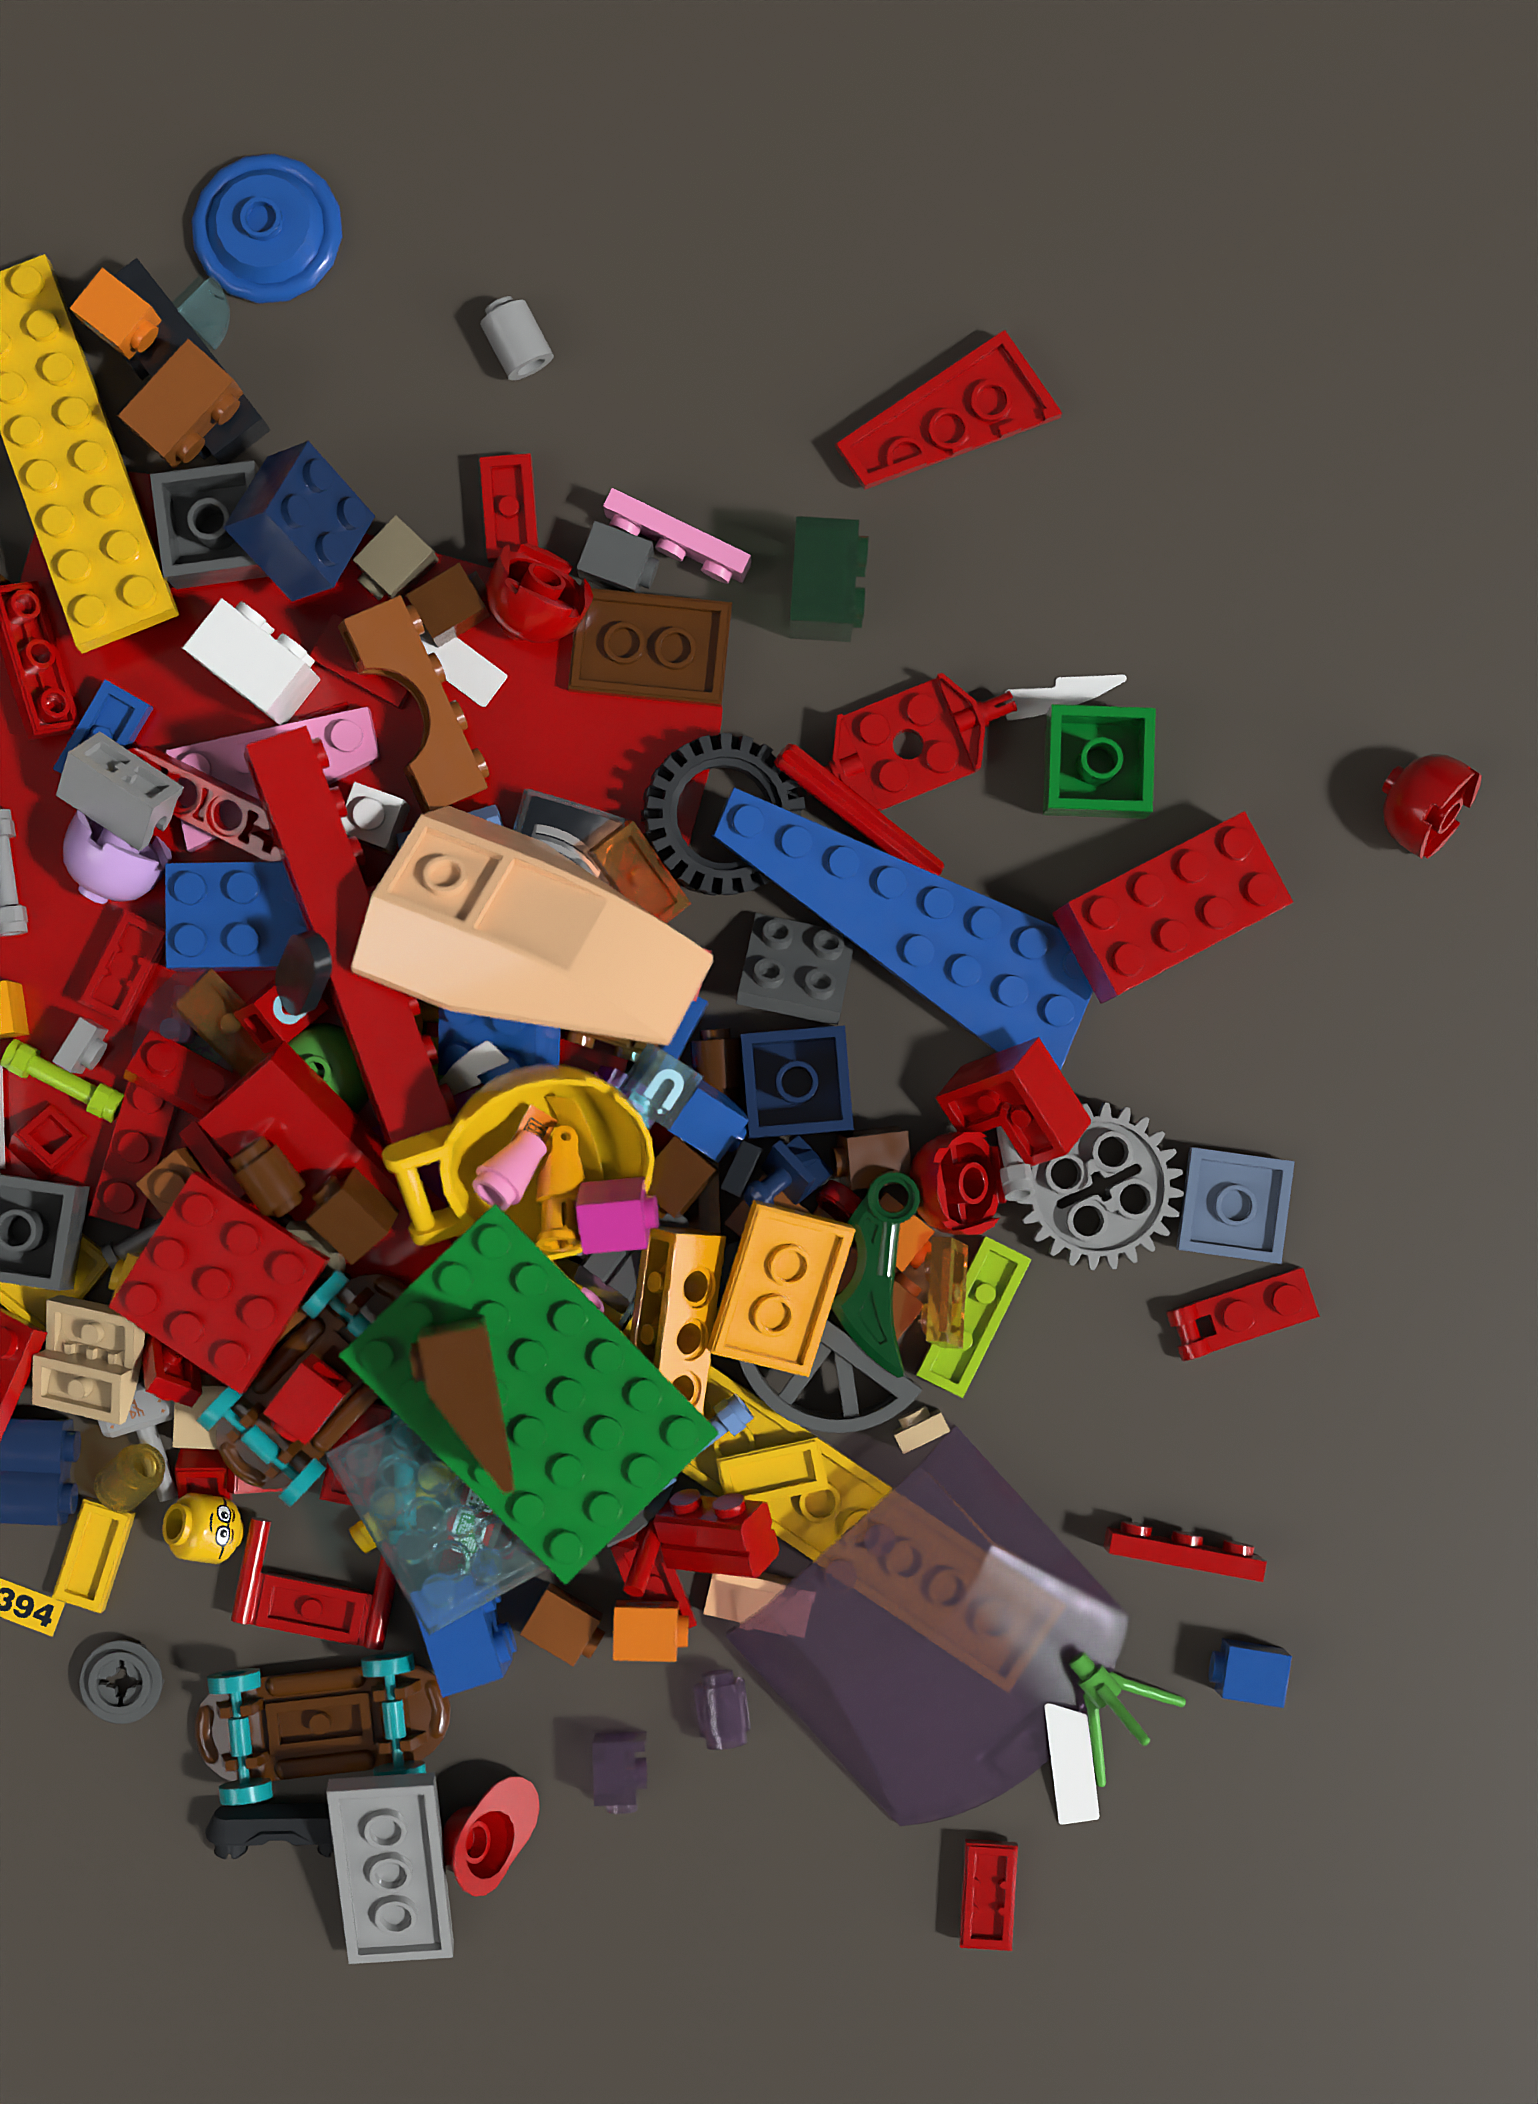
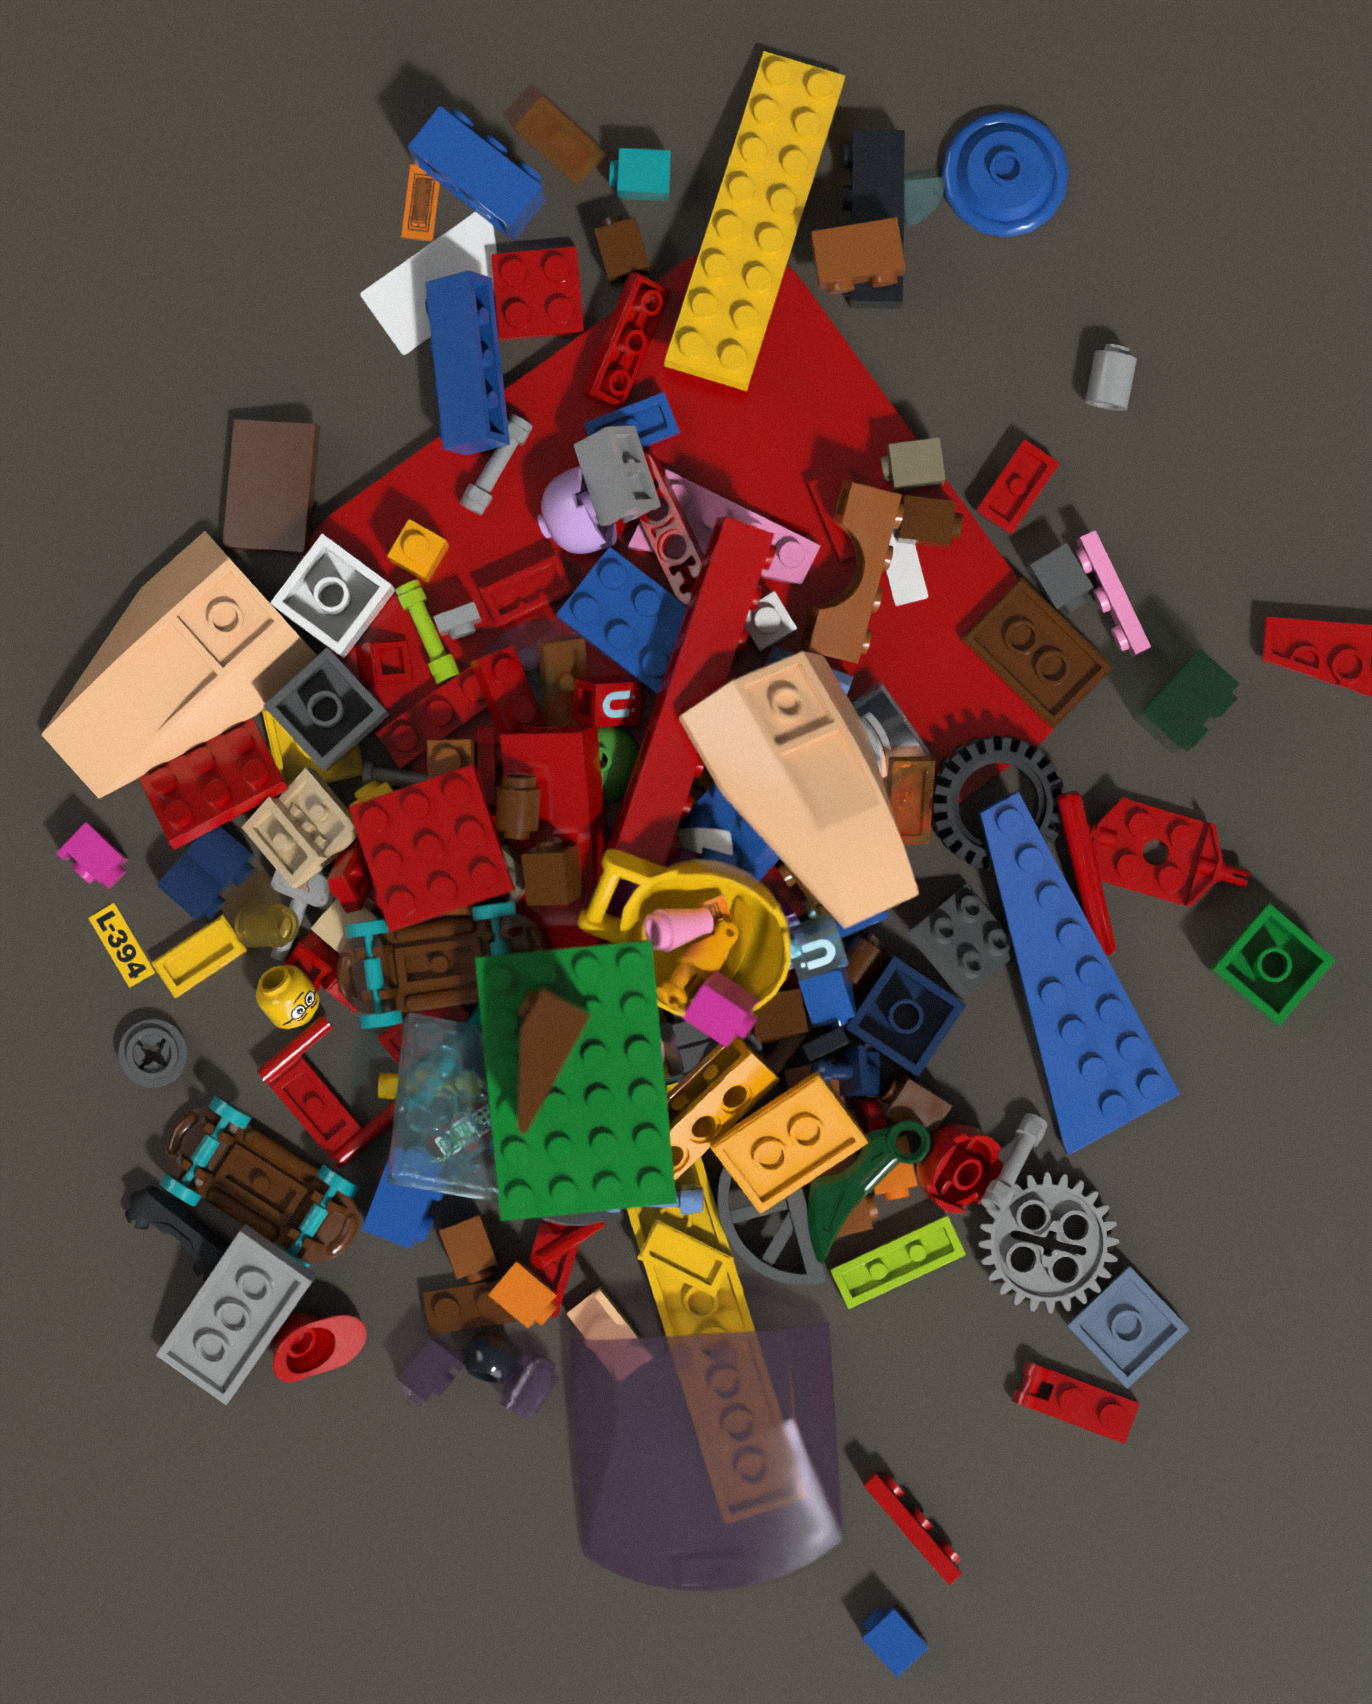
camera: 40 degrees right, 0 degrees up
(117, 314) = (862, 162): orange brick -> none
(190, 523) = (815, 348): dark grey brick -> none
(245, 656) = (770, 459): white brick -> none
(299, 521) = (874, 394): dark blue brick -> none
(303, 972) = (645, 691): black tile -> none
(307, 1400) = (427, 969): red brick -> none
(536, 595) = (989, 561): red cylinder -> none
(601, 1688) = (463, 1308): none -> reddish brown plate
(664, 1712) = (490, 1357): none -> black piece
(716, 1534) = (619, 1267): red brick -> none
(919, 1428) = (804, 1306): tan plate -> none
(947, 1275) = (902, 1220): clear orange plate -> none
(988, 1894) = (606, 1645): red plate -> none
(1022, 1095) = (1046, 1144): red panel -> none
(1066, 692) = (1286, 902): white sticker -> none
(1072, 1765) = (727, 1605): white sticker -> none
(1101, 1690) = (787, 1571): bright green plant -> none
(1172, 907) = (1242, 1099): red brick -> none

